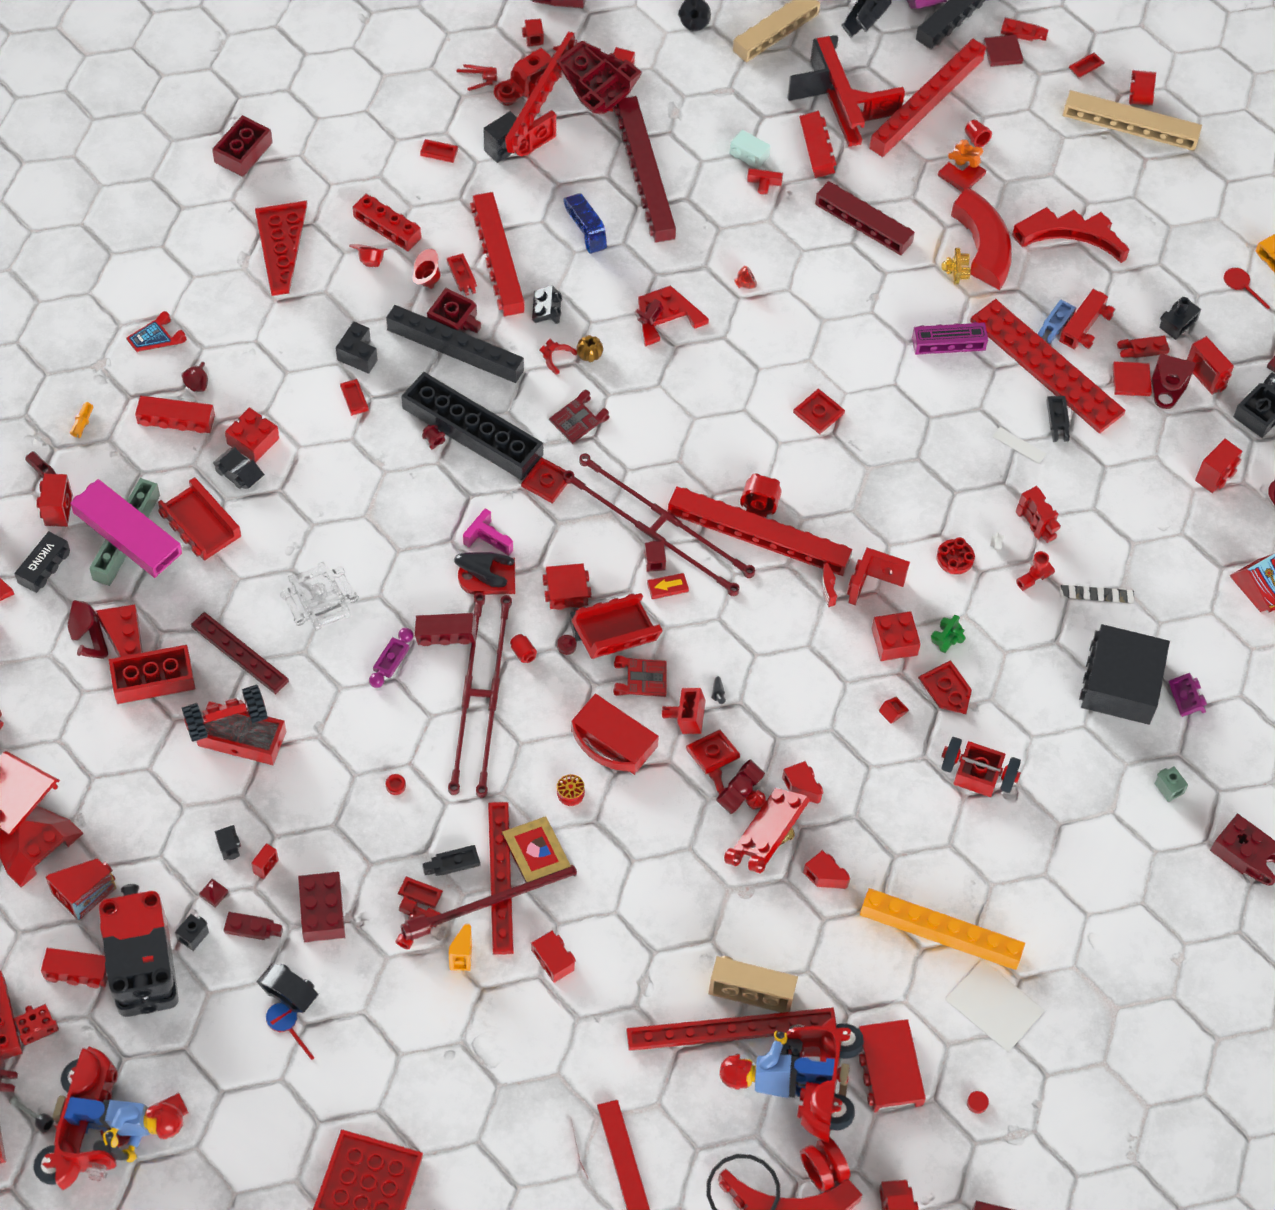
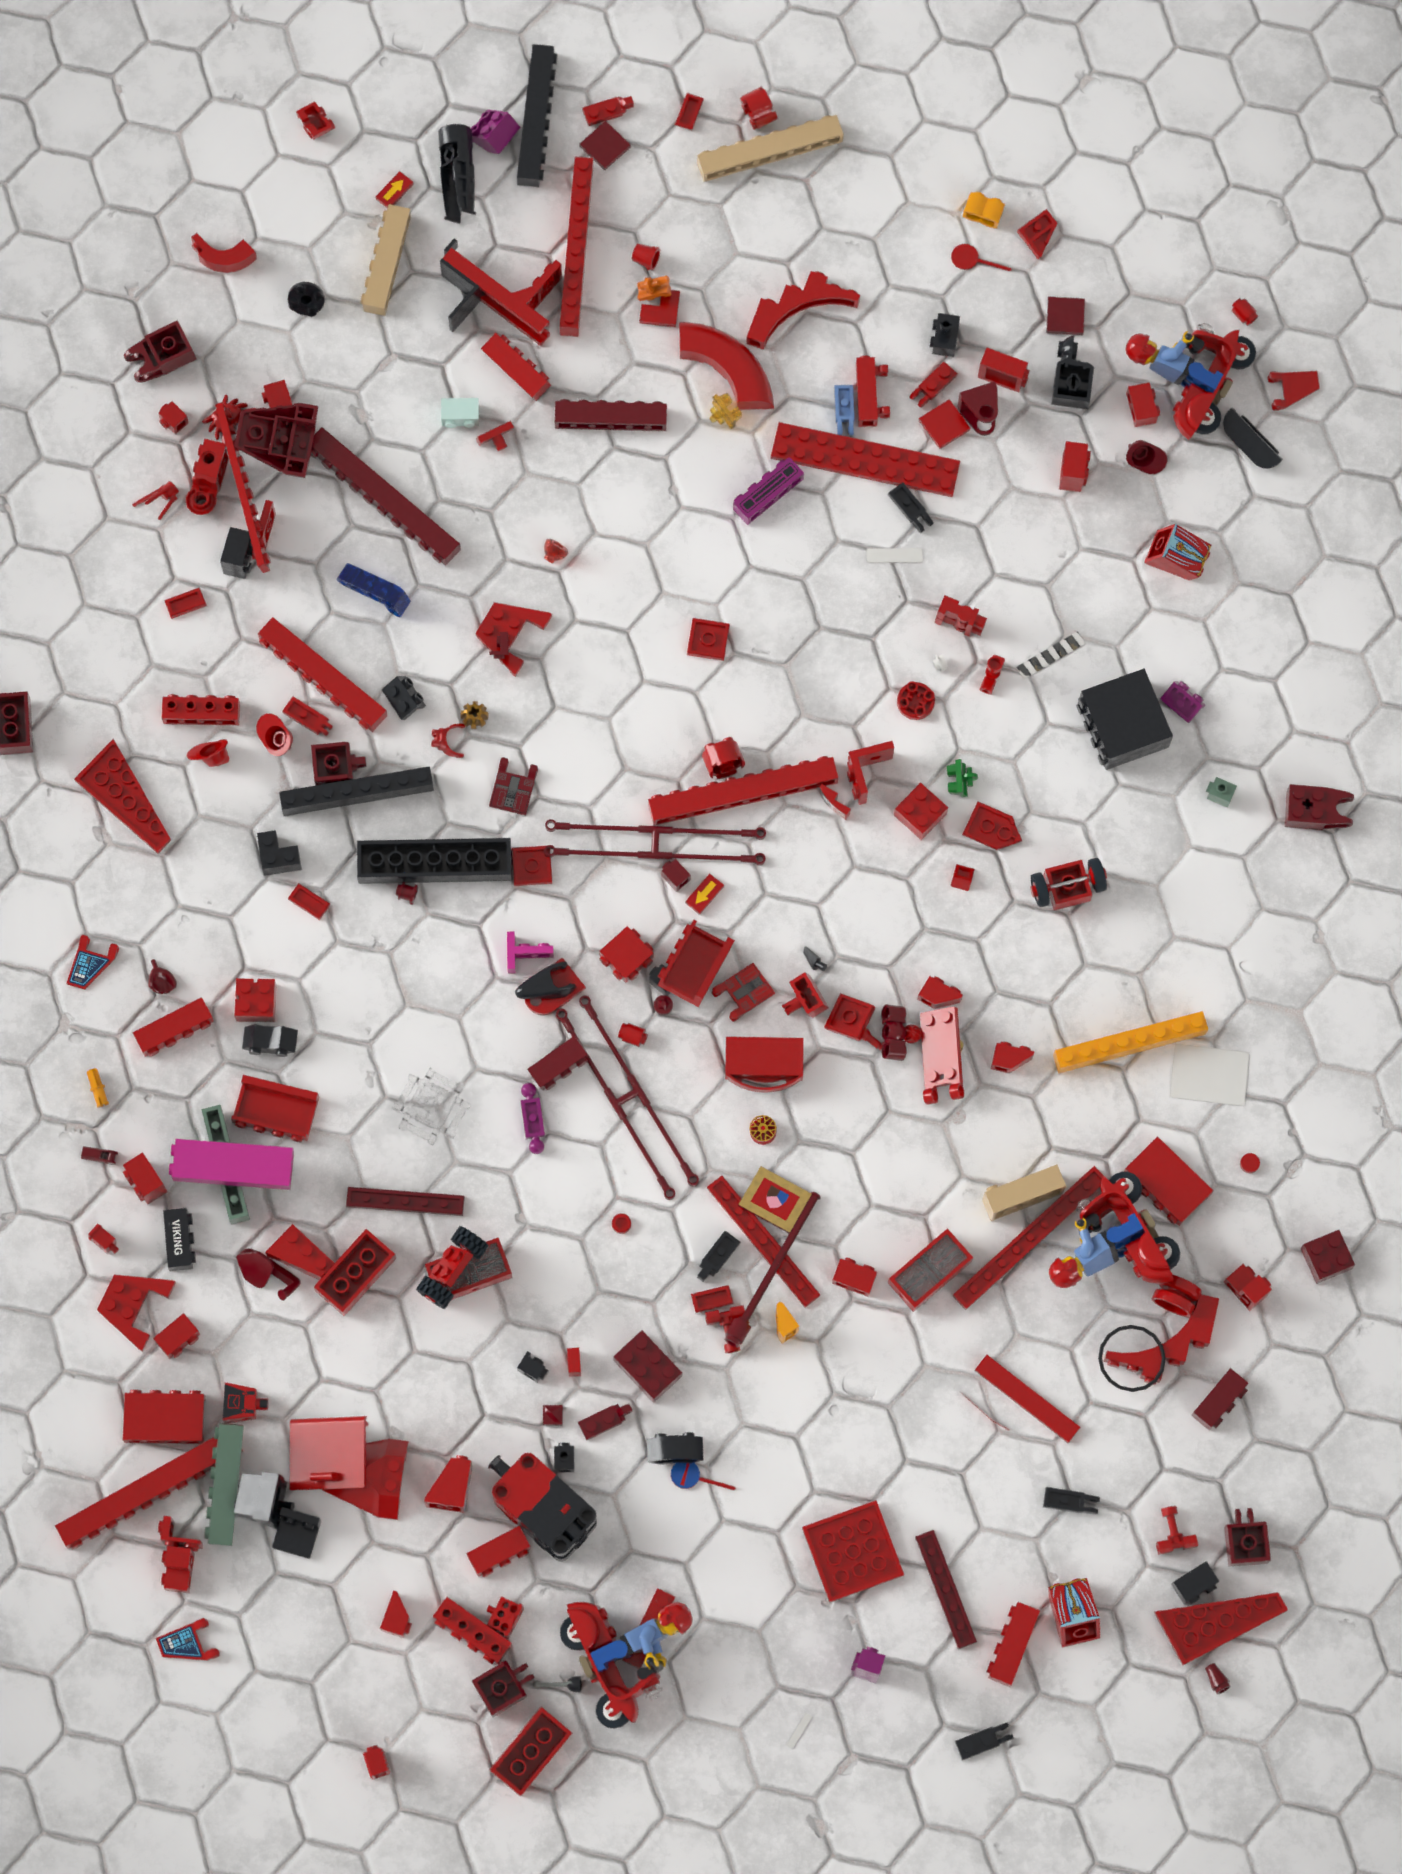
camera: 35 degrees left, 15 degrees up
(622, 993) = (930, 1270): none -> clear brick

